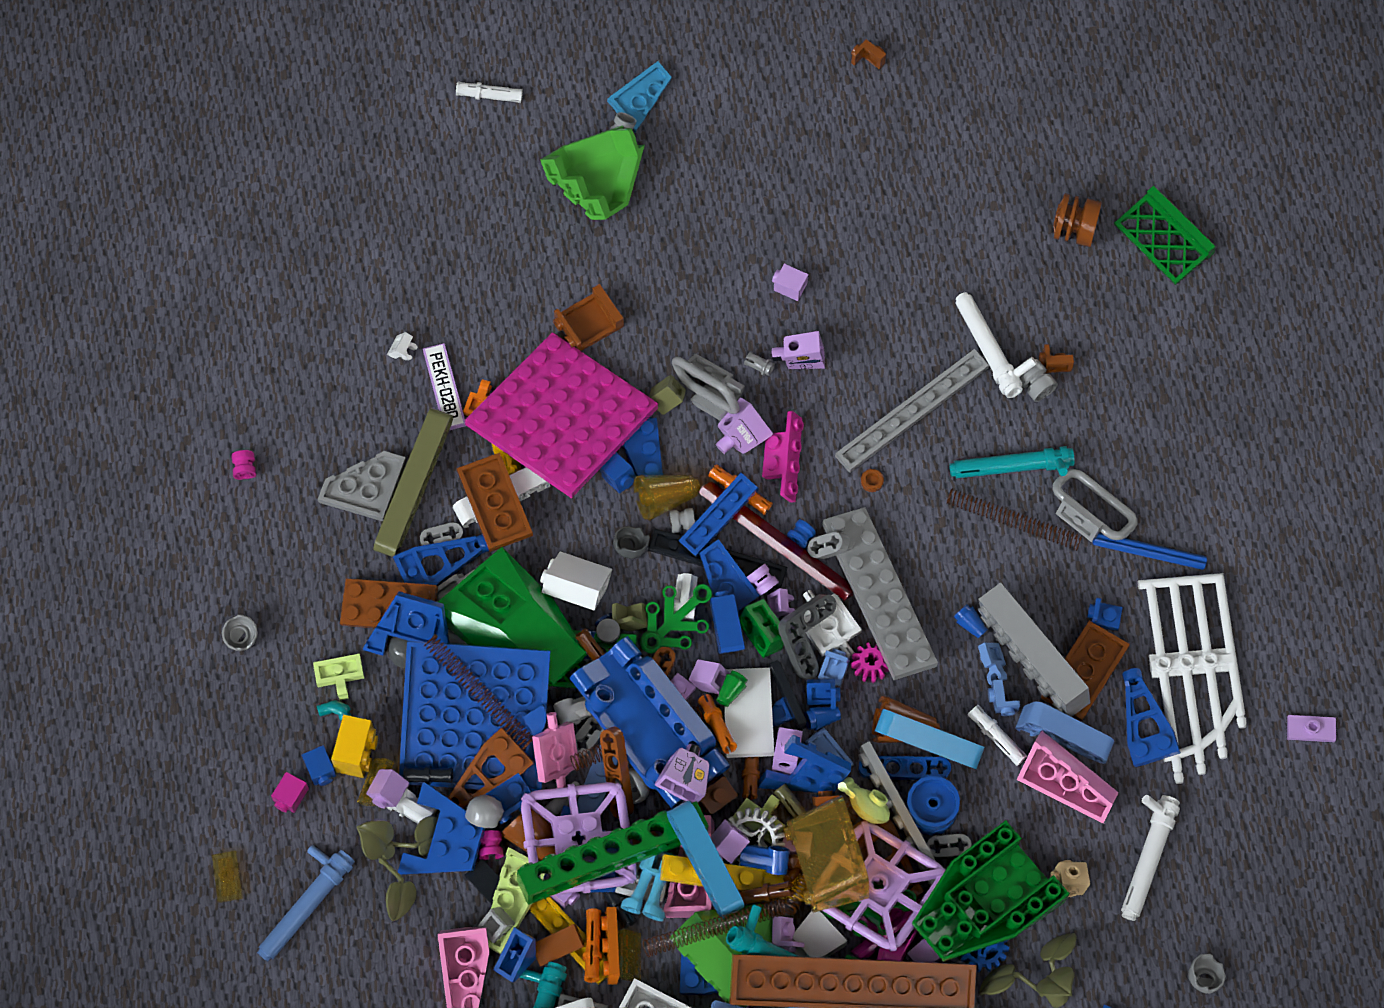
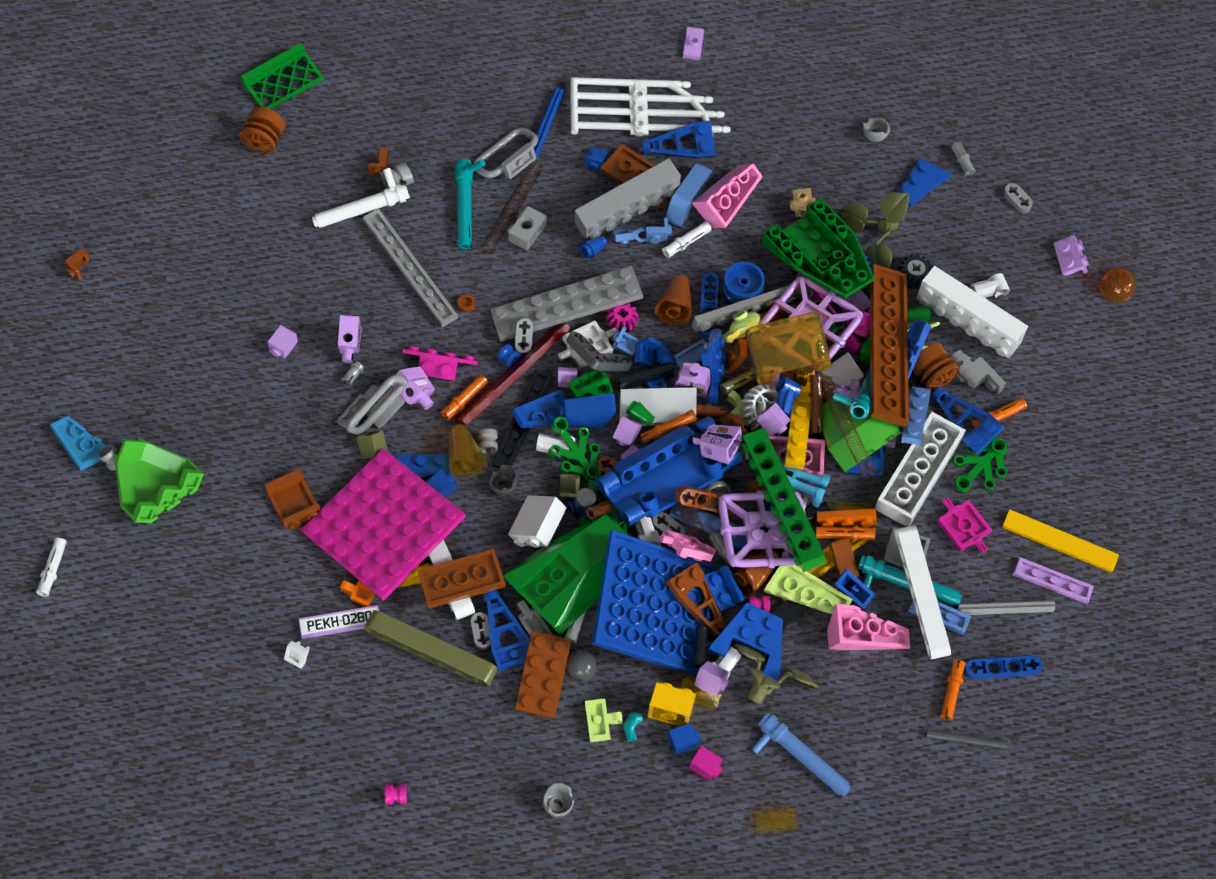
camera: 90 degrees left, 5 degrees down
(365, 487) = (428, 690): light grey plate -> none
(411, 620) = (565, 649): blue wing -> none
(434, 637) = (638, 590): piece -> none
(484, 811) = (737, 601): light grey hair -> none
(497, 923) = (828, 599): light grey slope -> none
(536, 719) = (663, 552): blue tile -> none
(705, 859) = (793, 430): dark azure beam -> none
(718, 514) = (491, 408): blue plate -> none
(765, 584) = (549, 383): lavender wheel -> none
(929, 738) = (694, 277): dark azure beam -> none
(947, 840) = (777, 278): light grey beam -> none
(992, 550) = (525, 237): none -> light grey brick
(1161, 824) = (762, 142): white cylinder -> none

